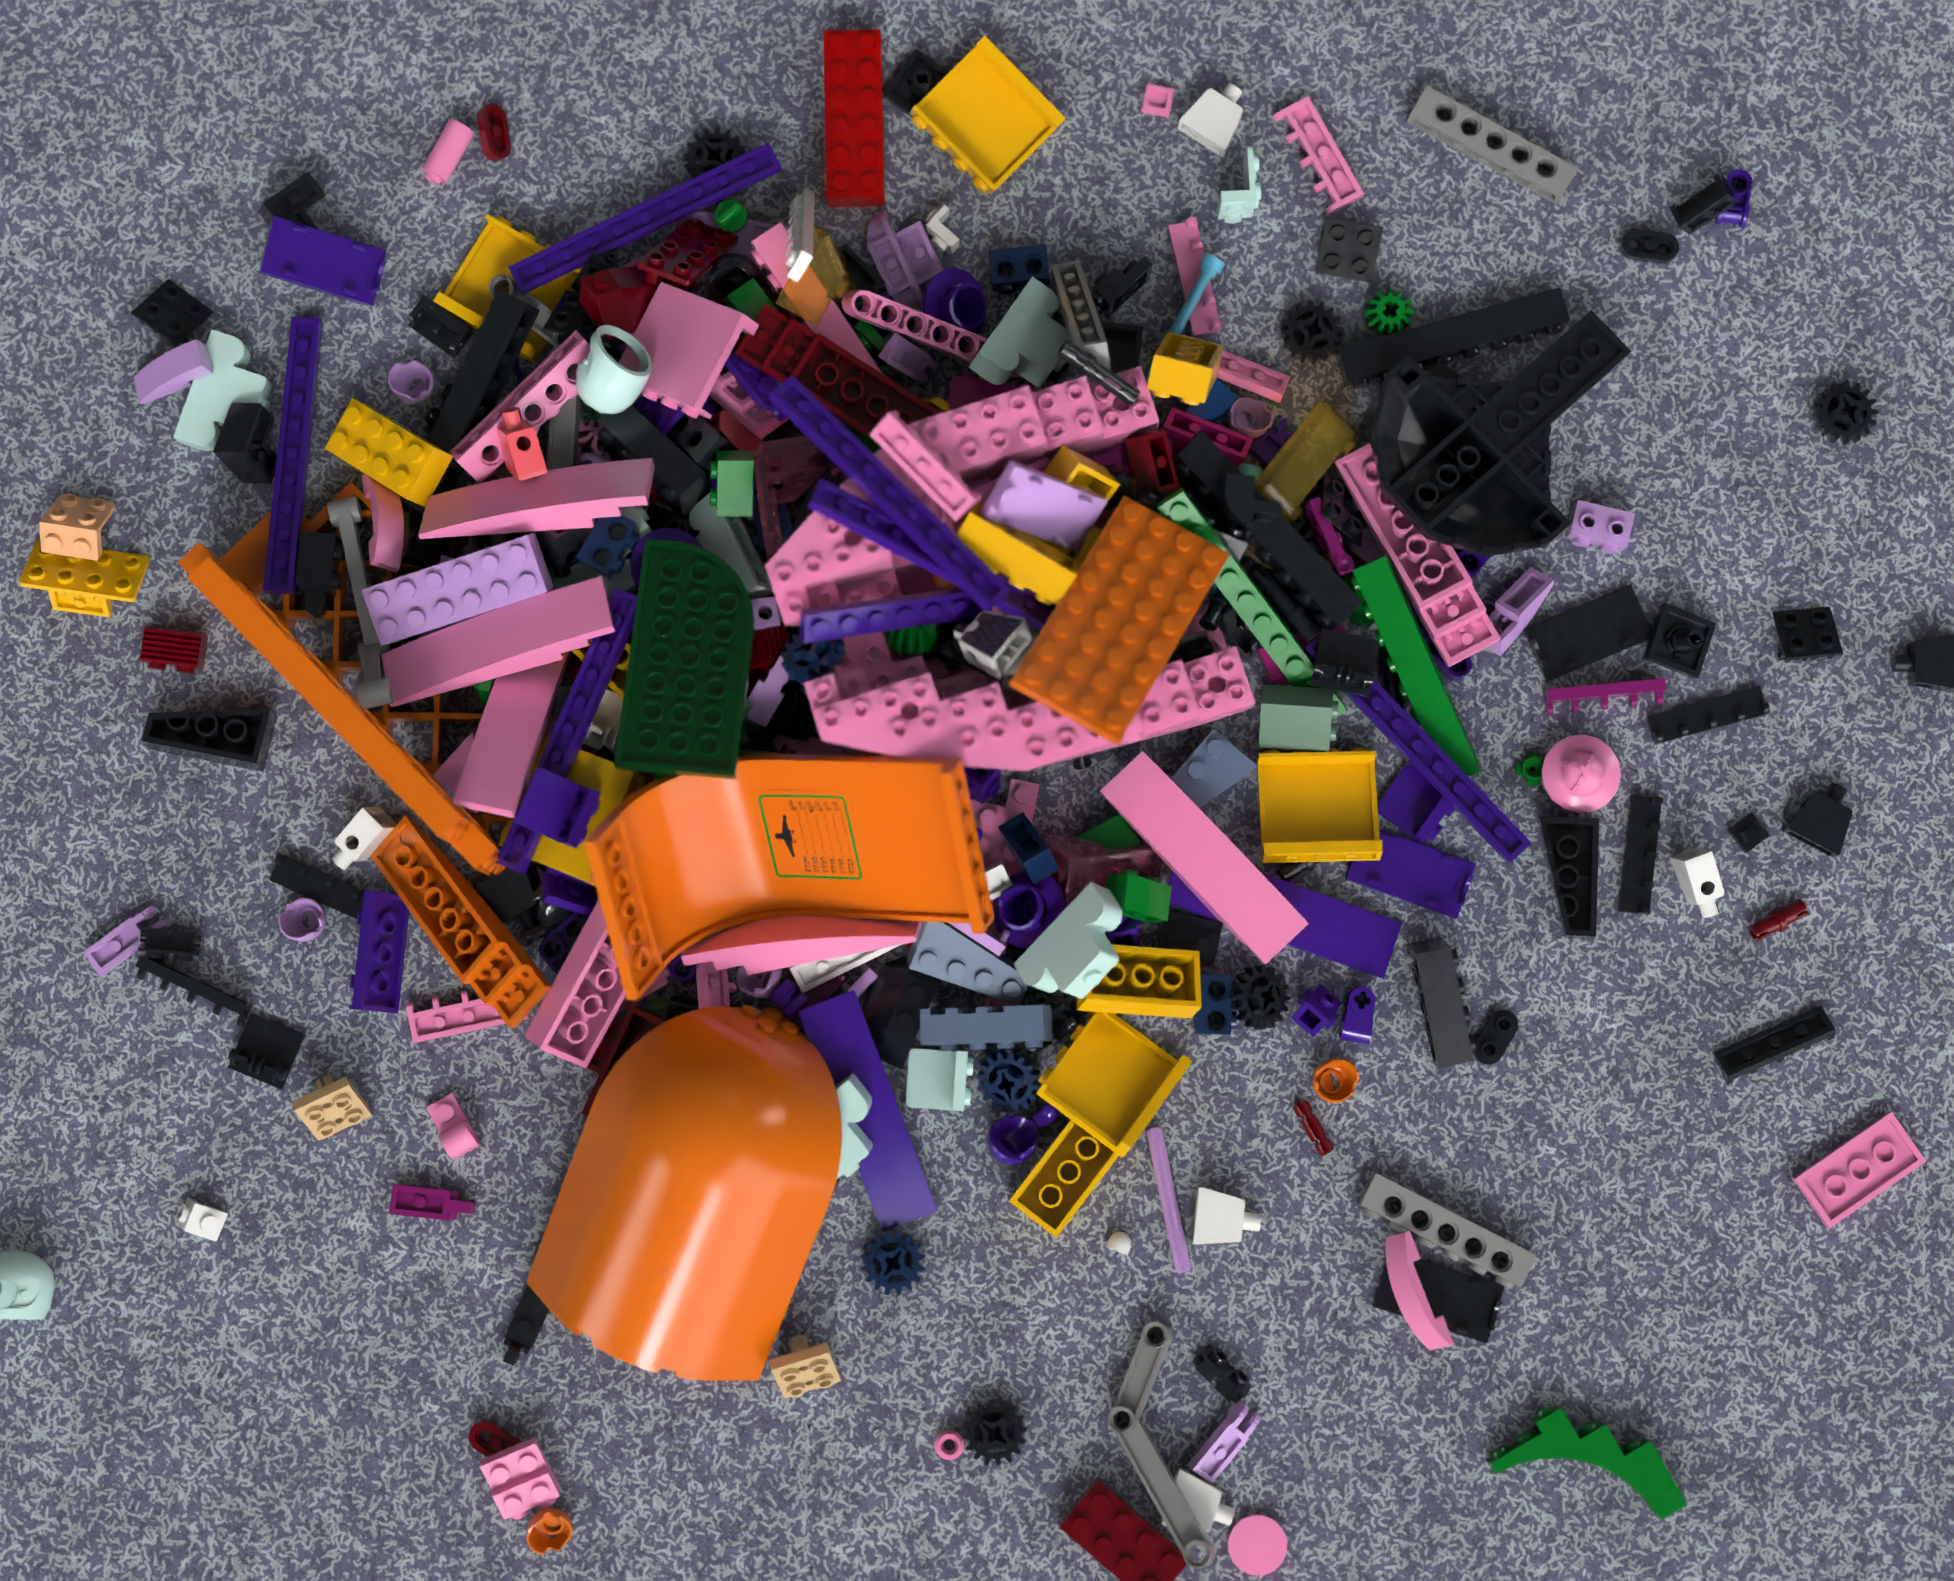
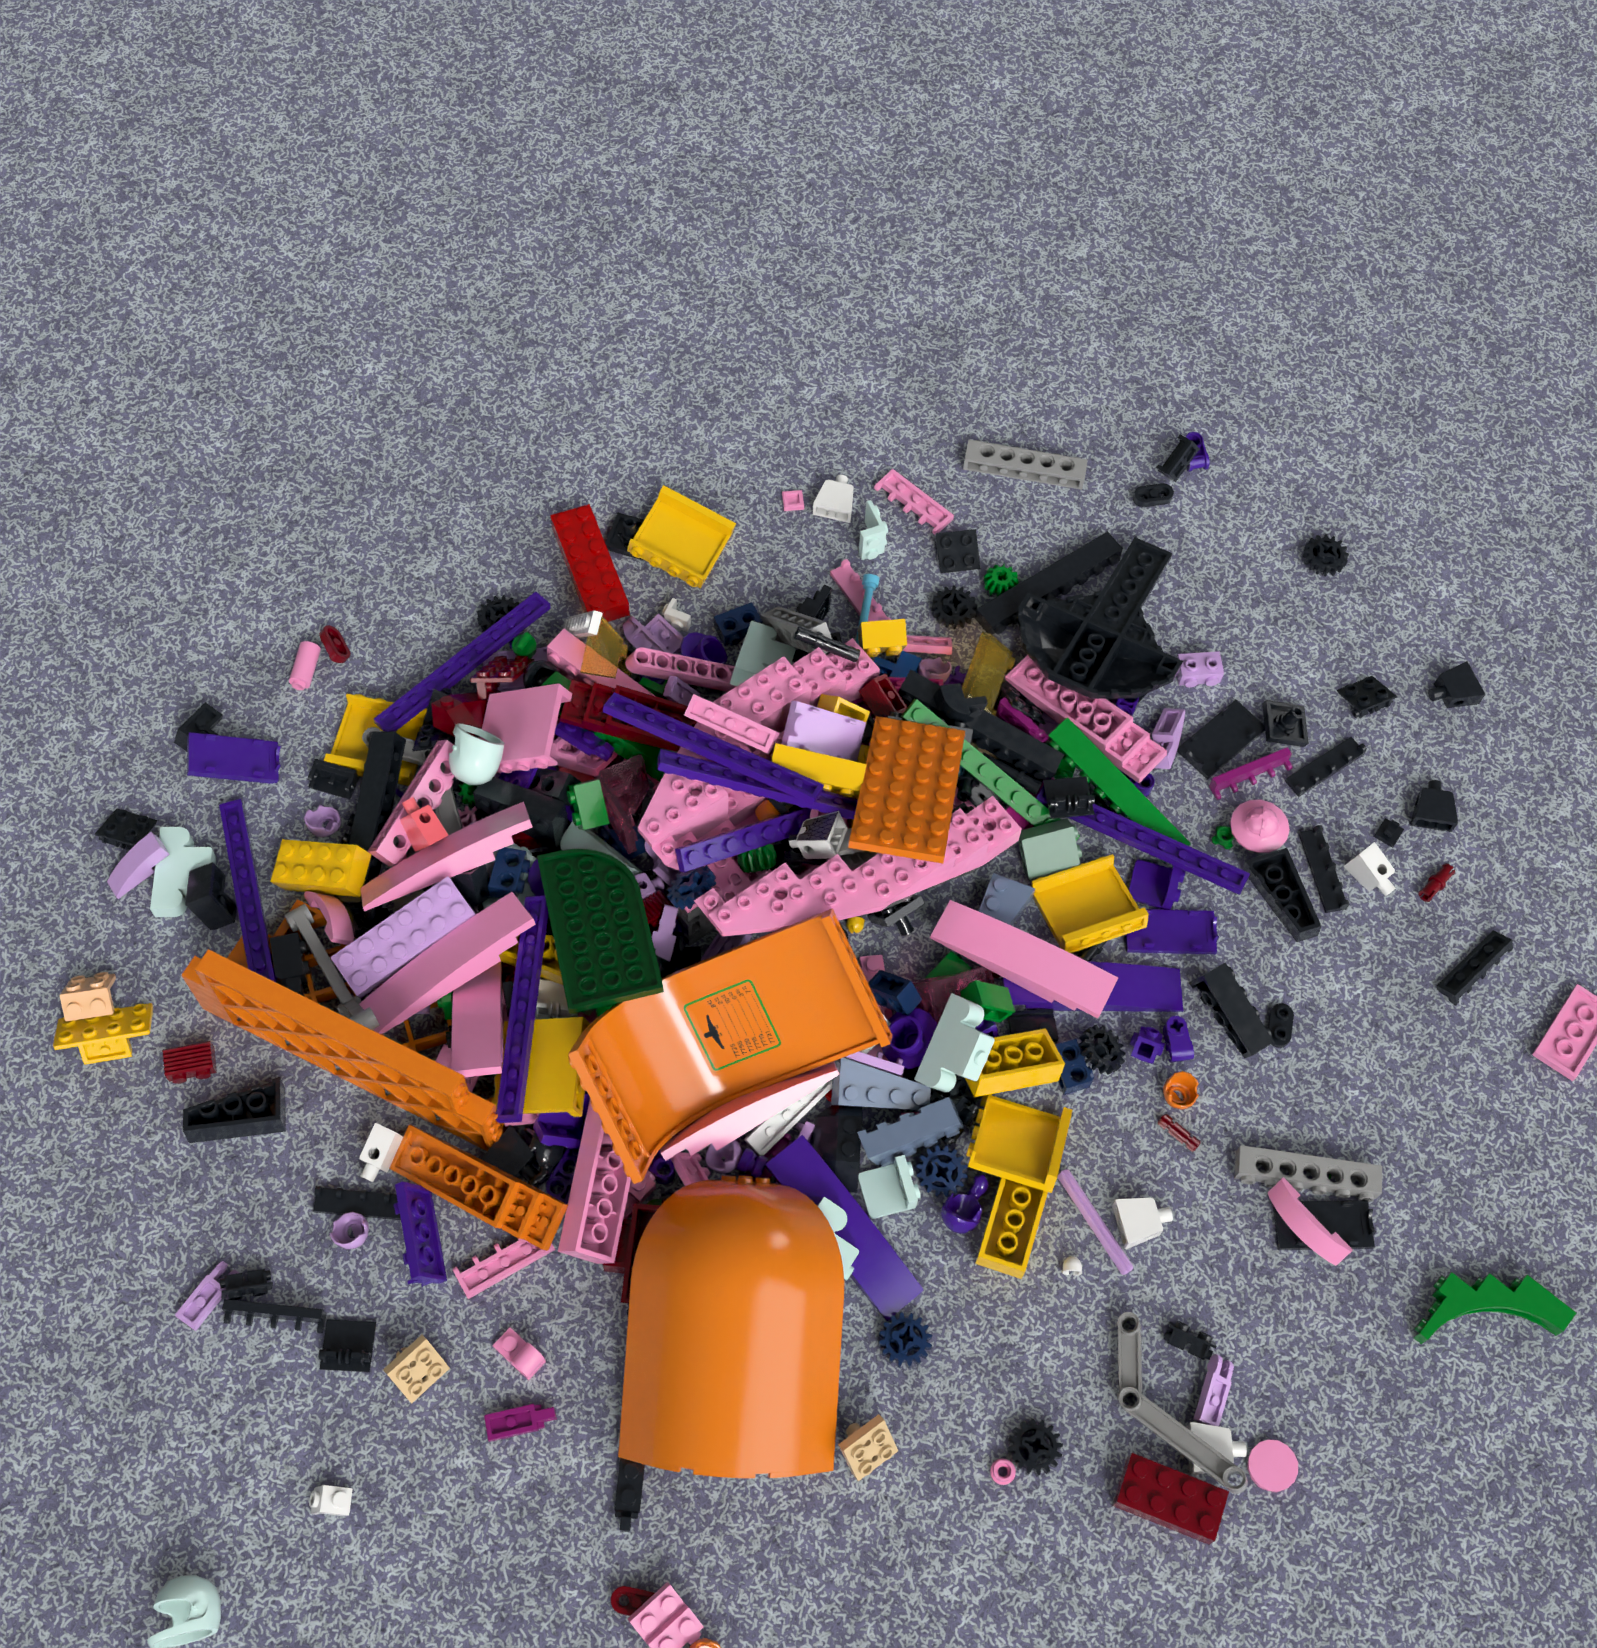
camera: 25 degrees left, 20 degrees down
(557, 808) = (533, 1060): dark purple bracket -> none

